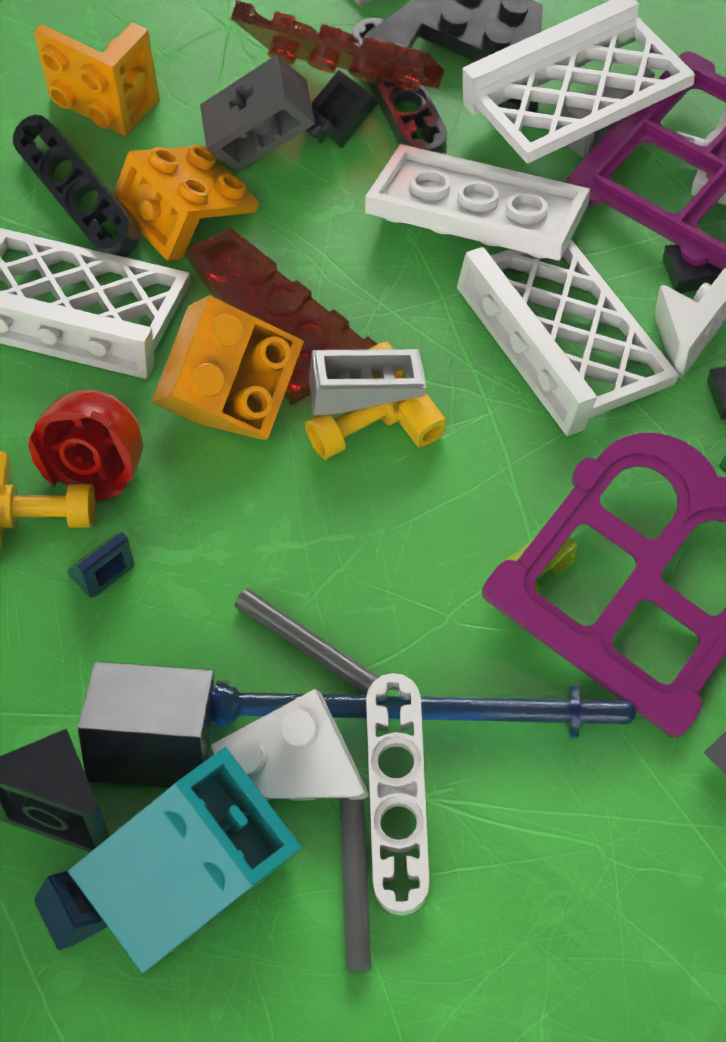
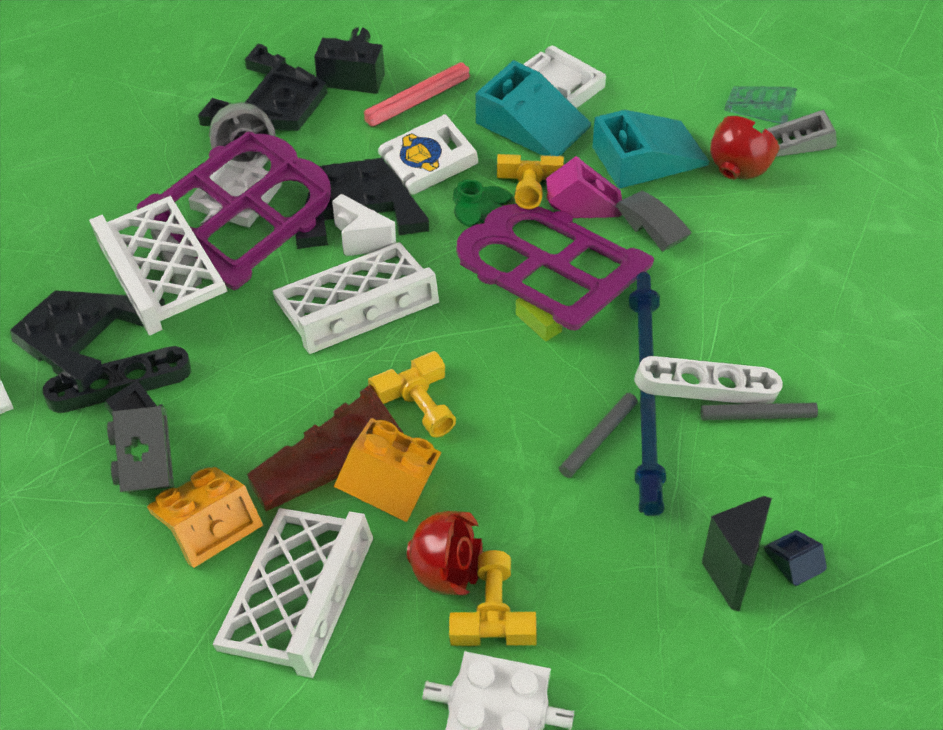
camera: 90 degrees left, 10 degrees down
(74, 186) = (176, 583): black beam -> none
(103, 565) = (540, 551): slope -> none
(107, 87) = (80, 565): light orange bracket -> none
(145, 723) = (674, 503): slope -> none
(184, 859) = (766, 460): teal slope -> none
(296, 753) = (688, 435): white wing -> none
(339, 49) = (84, 410): clear red wing -> none
(345, 380) = (408, 386): light grey slope -> none
(478, 202) = (246, 329): white plate -> none

